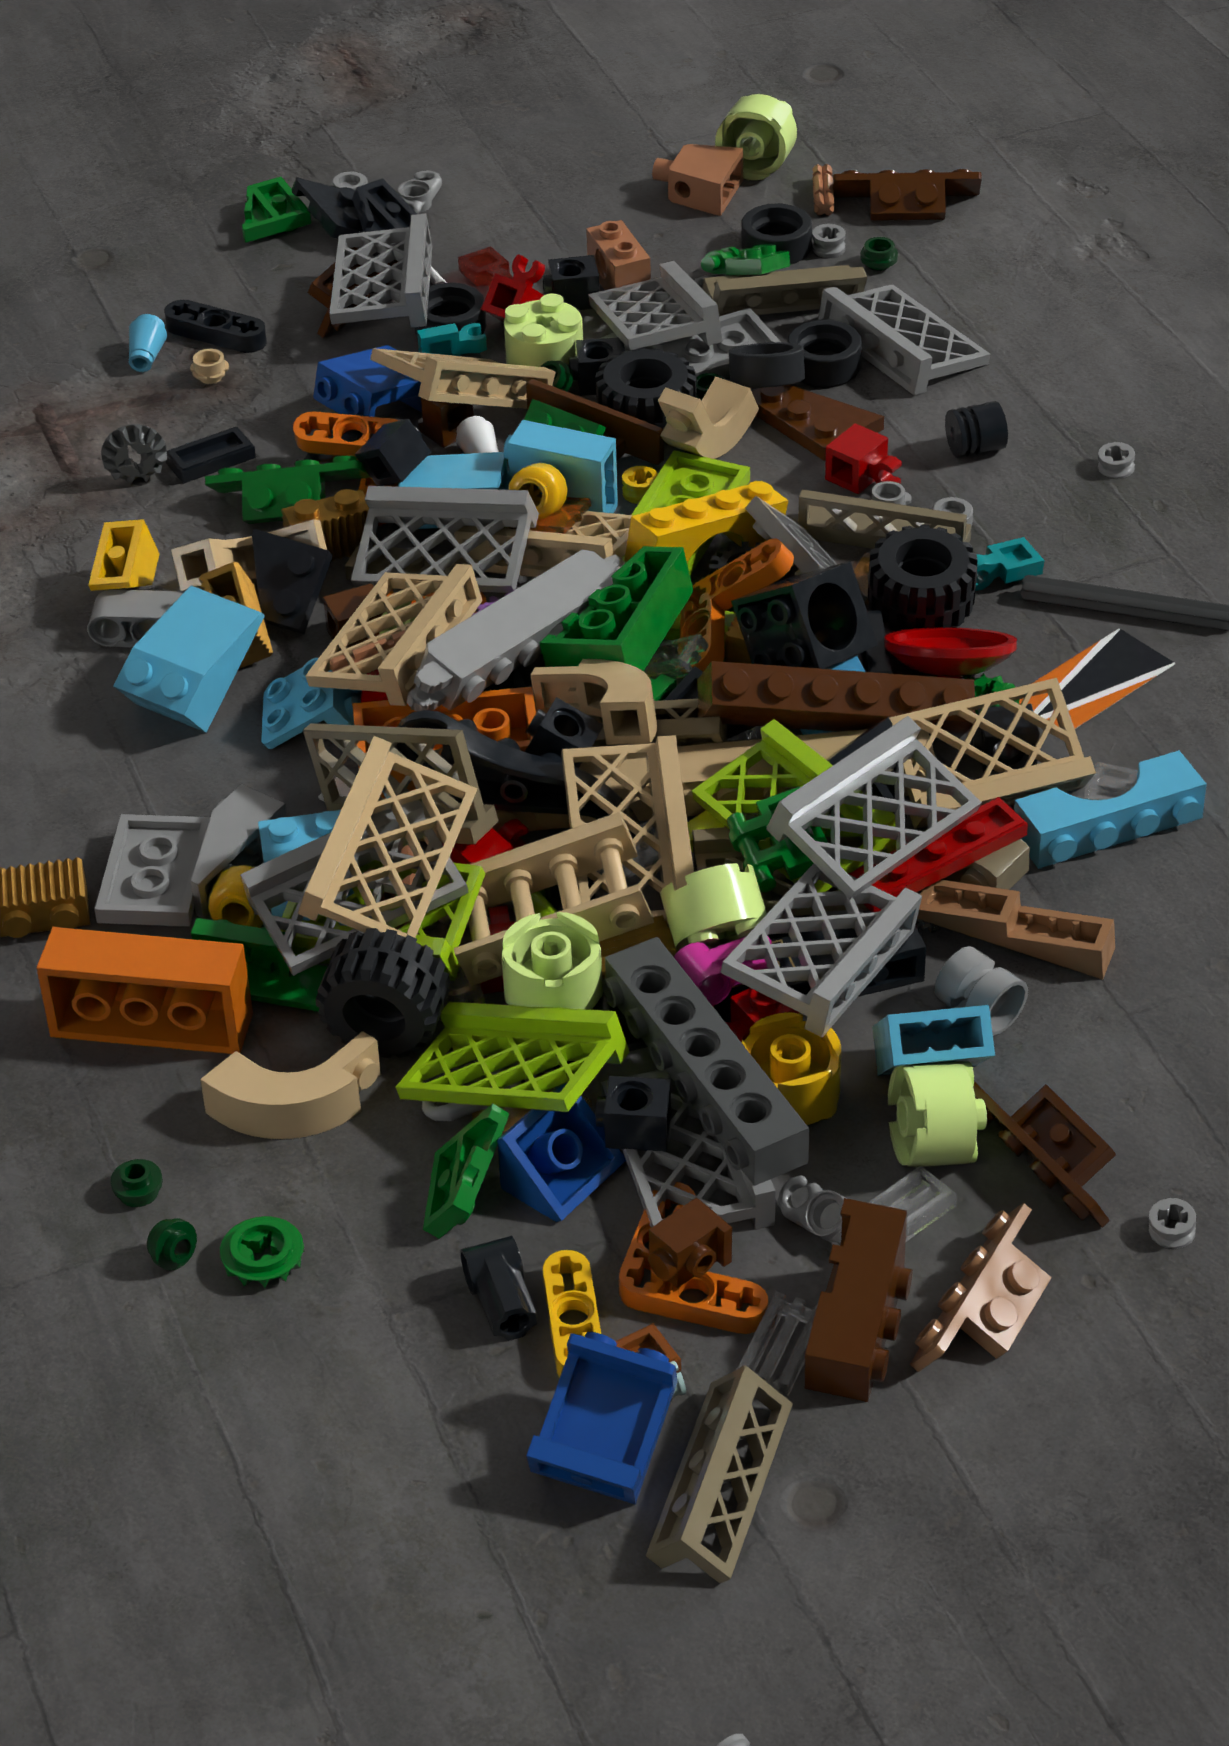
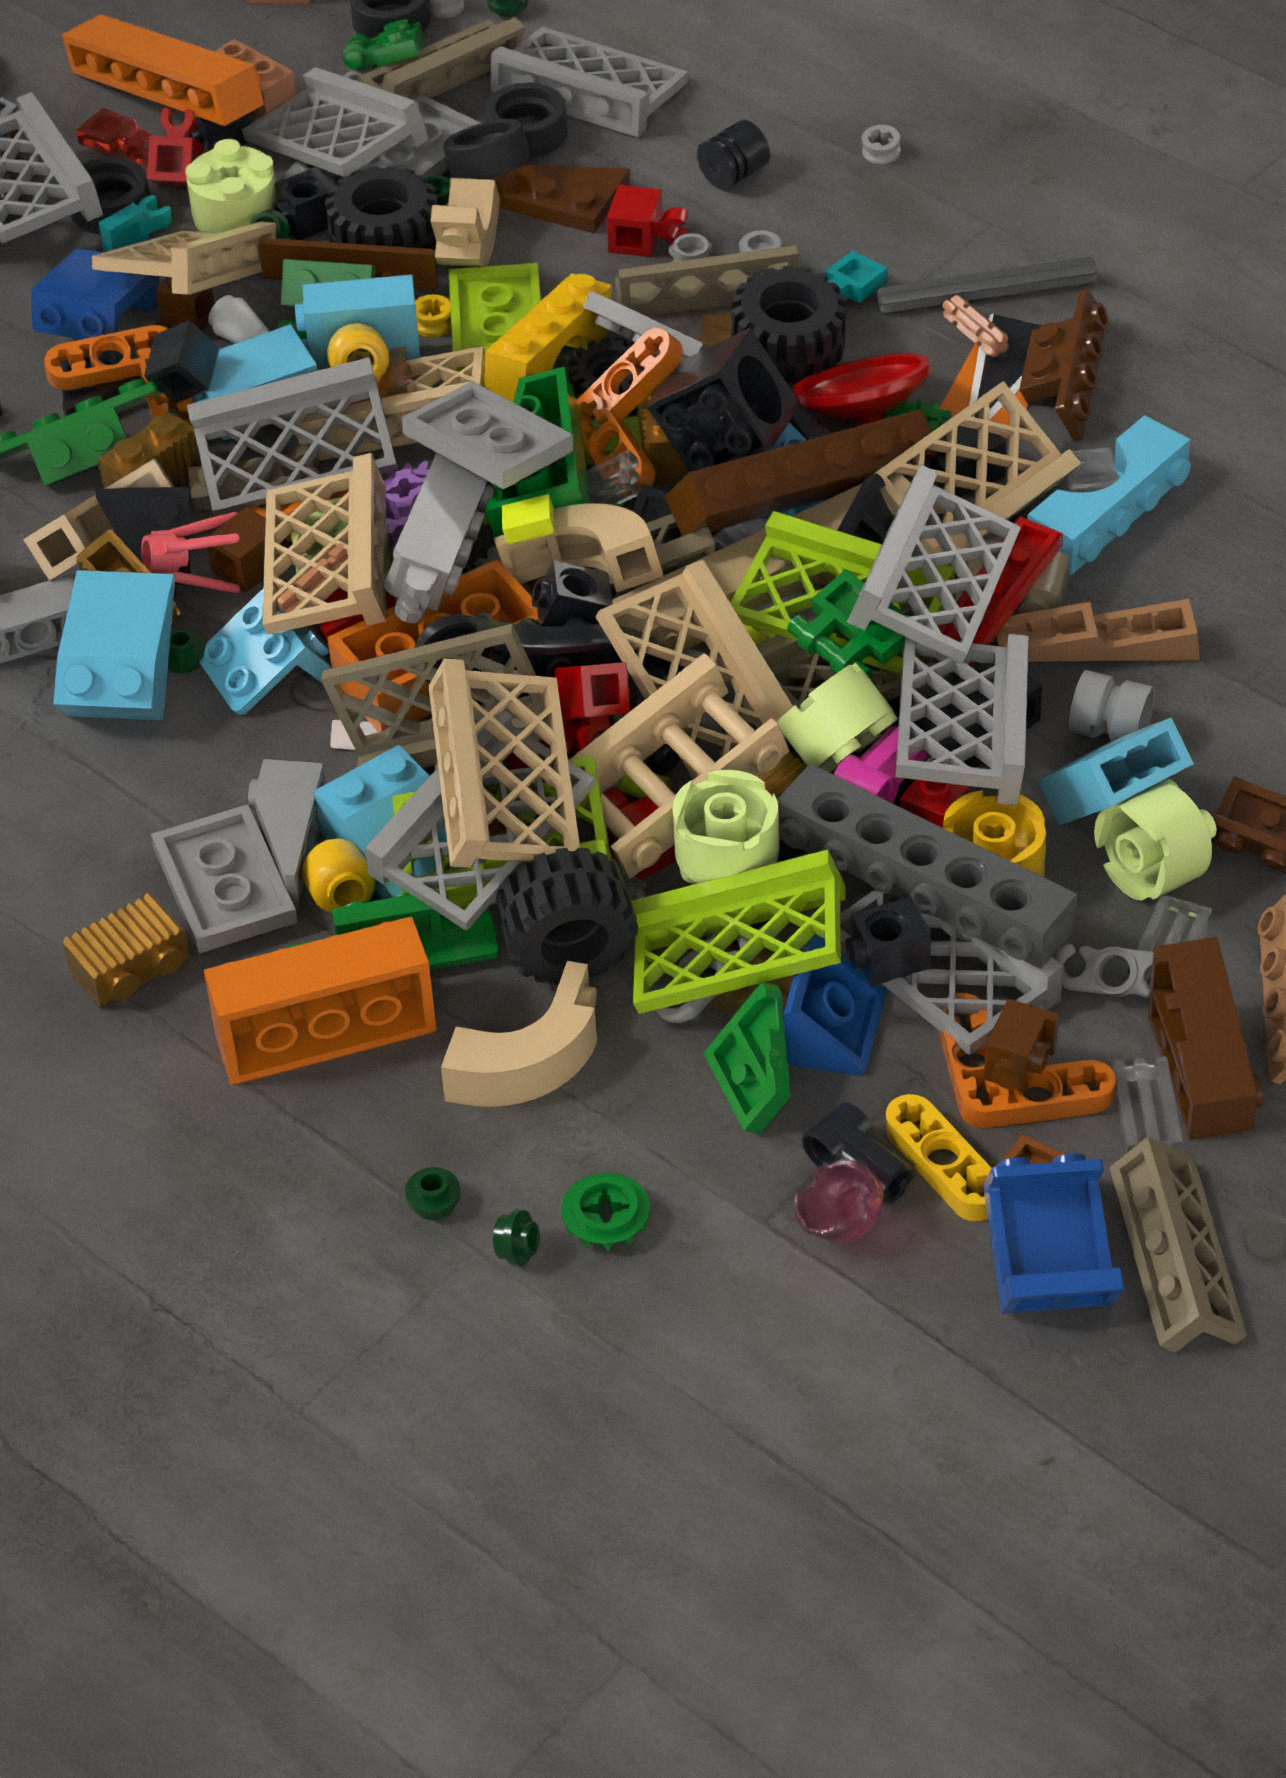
camera: 25 degrees left, 5 degrees up
(253, 680) = (185, 650): none -> dark green plate
(281, 595) = (166, 551): none -> coral plant
(450, 1322) = (840, 1202): none -> clear pink hair
(525, 817) = (593, 695): none -> red brick
(549, 228) = (163, 69): none -> orange brick
(566, 659) = (528, 519): none -> neon yellow tile
(572, 579) = (487, 434): none -> light grey plate
(1092, 632) = (975, 326): none -> nougat axle
(1152, 688) = (1065, 361): none -> reddish brown bracket

